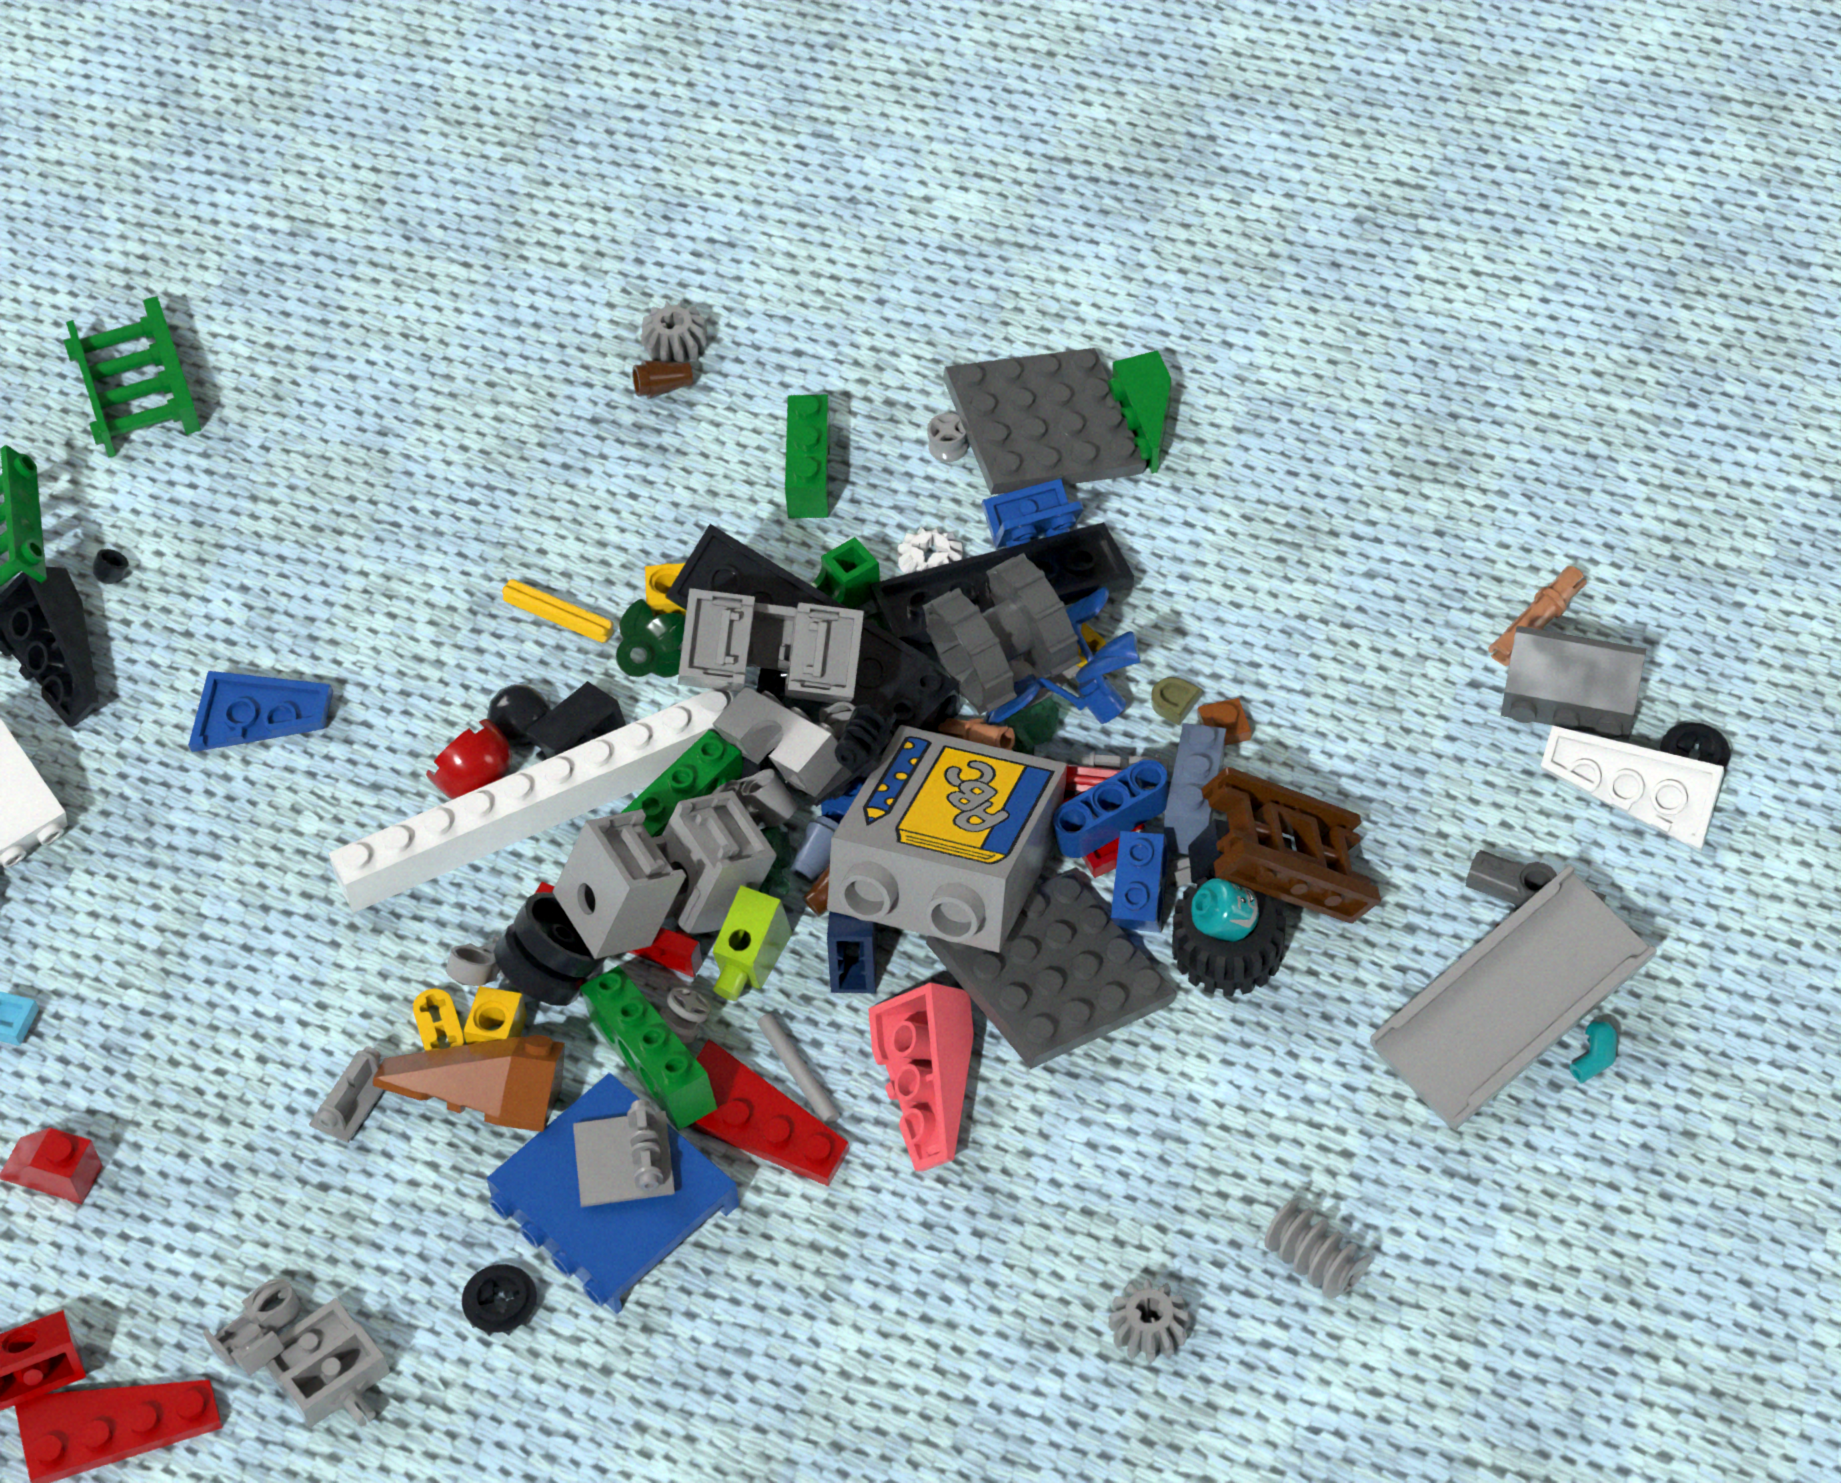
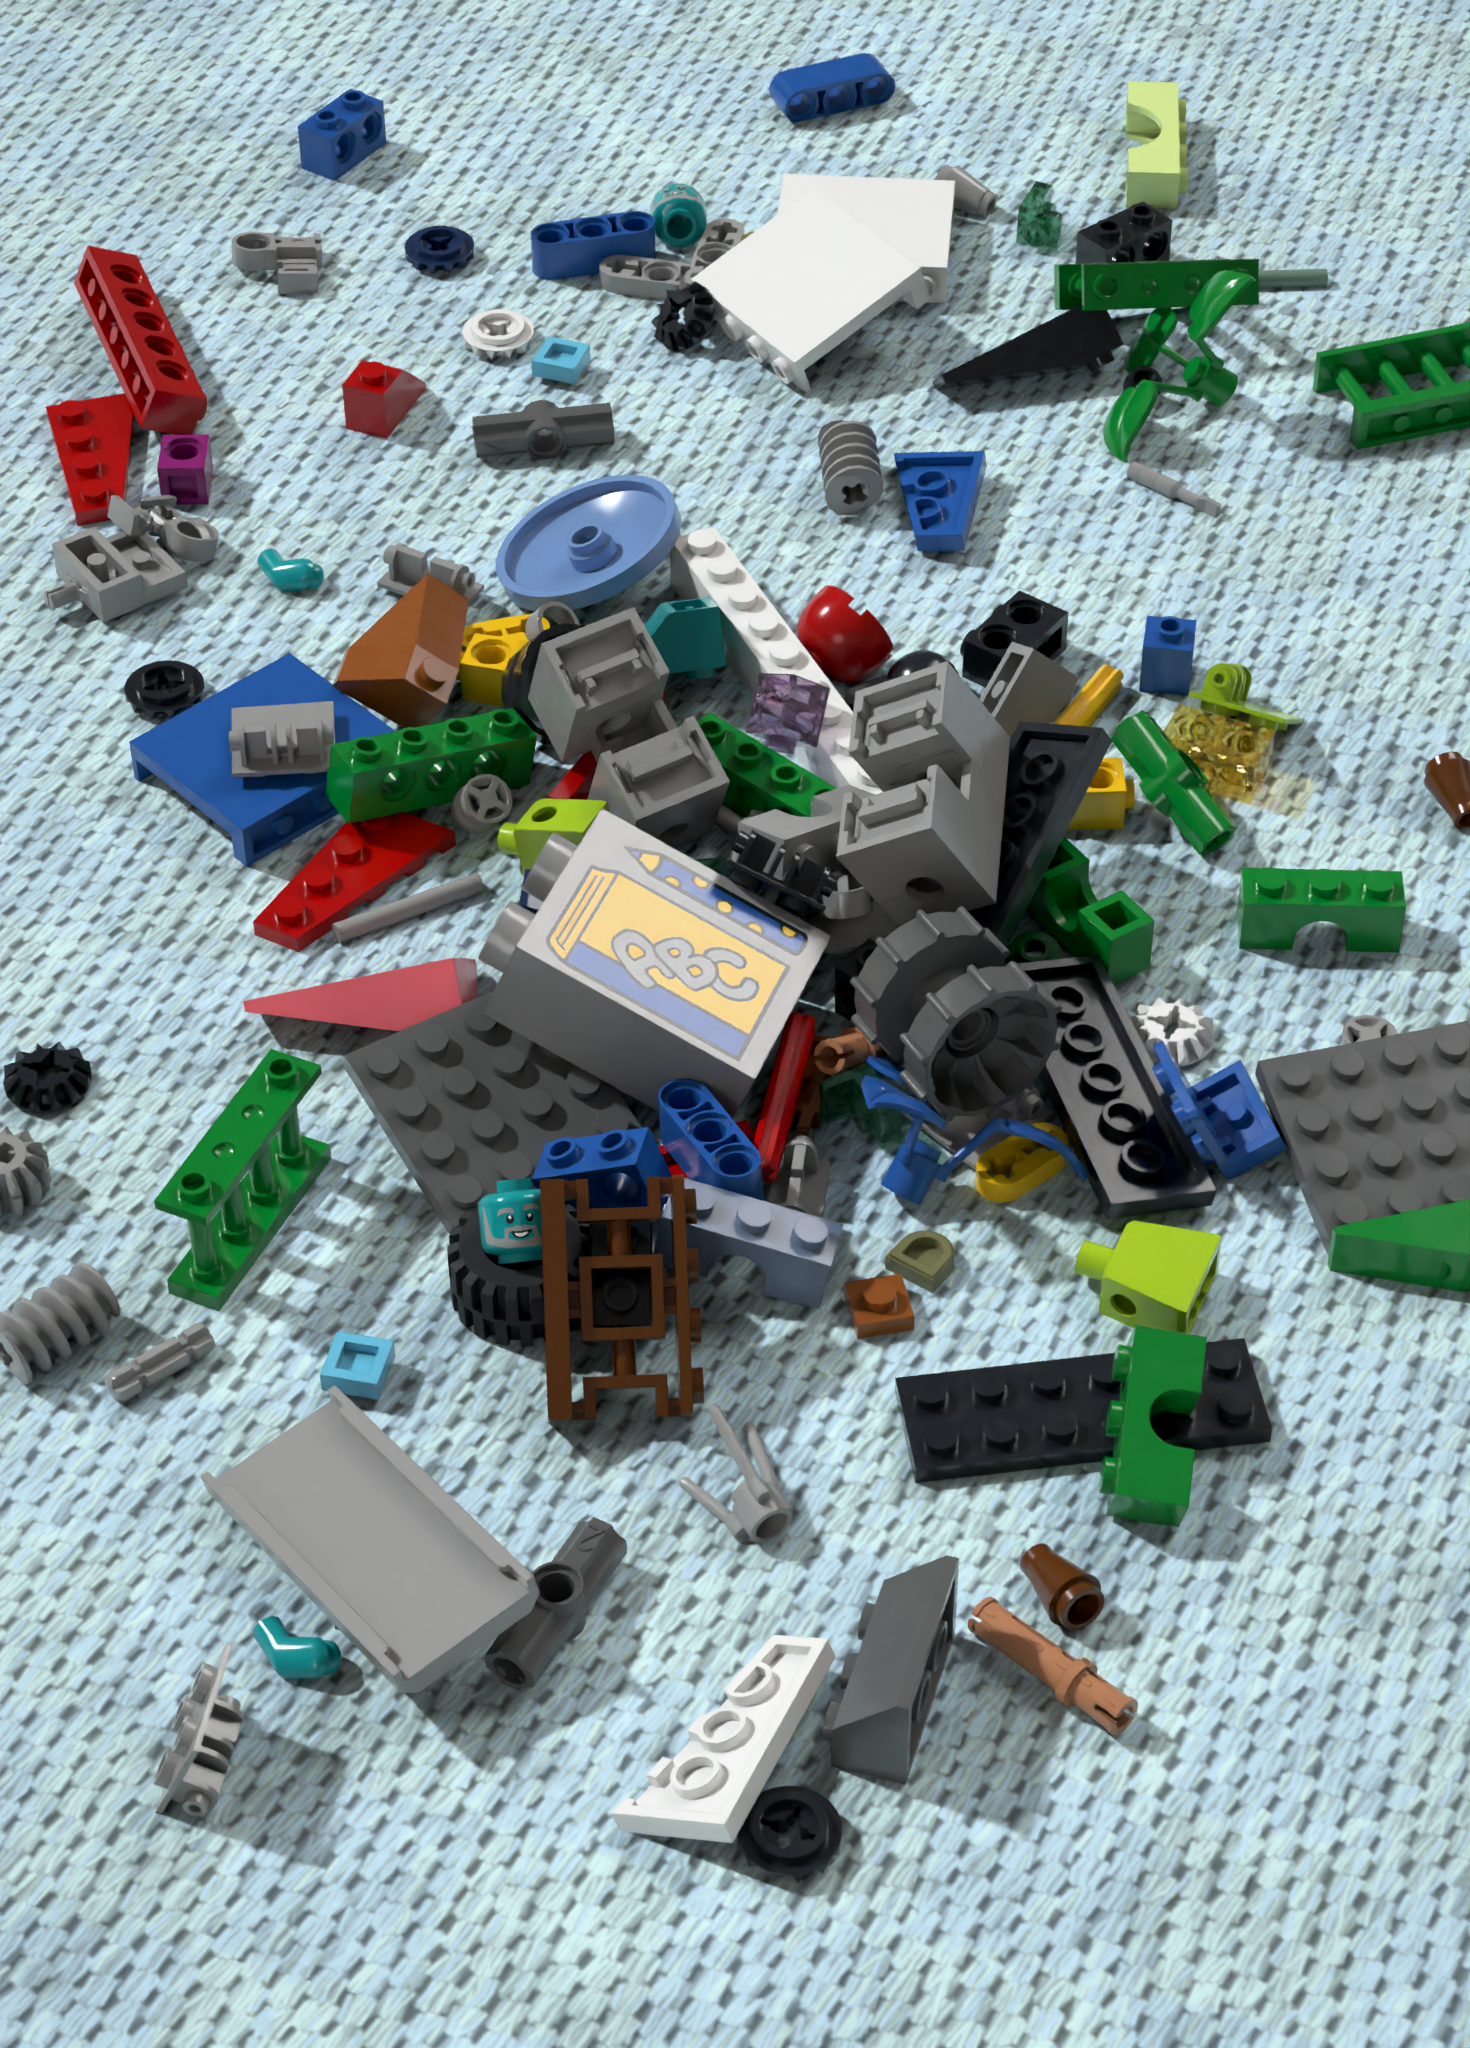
camera: 90 degrees right, 10 degrees down
(104, 464) = (1204, 376): none -> green plant
(125, 1022) = (562, 429): none -> dark grey piece
(173, 1338) = (186, 468): none -> magenta brick
(215, 772) = (849, 466): none -> light grey piece
(250, 552) = (1171, 488): none -> light grey piece
(328, 957) = (589, 542): none -> medium blue dish
(330, 1217) = (290, 574): none -> teal arm
(474, 649) = (1020, 621): none -> black brick
(481, 877) = (688, 636): none -> teal slope
(499, 545) = (1167, 655): none -> blue brick
(555, 641) = (1027, 688): none -> light grey slope
(564, 498) = (1226, 695): none -> lime hinge
(596, 762) = (787, 711): none -> clear purple brick
(619, 518) = (1227, 750): none -> clear yellow brick
(666, 537) = (1173, 783): none -> green piece
(1035, 1329) = (56, 1091): none -> black gear
(1173, 1115) = (266, 1196): none -> green fence
(1194, 557) = (1153, 1275): none -> lime torso
(1309, 607) = (1058, 1414): none -> black plate
(1317, 543) = (1146, 1475): none -> green arch
(1326, 1040) = (358, 1364): none -> medium azure plate
(1334, 1179) = (159, 1362): none -> light grey axle
(1426, 781) = (758, 1503): none -> light grey plant
(1472, 610) = (1065, 1590): none -> reddish brown cone
(1699, 1084) = (203, 1743): none -> light grey hinge

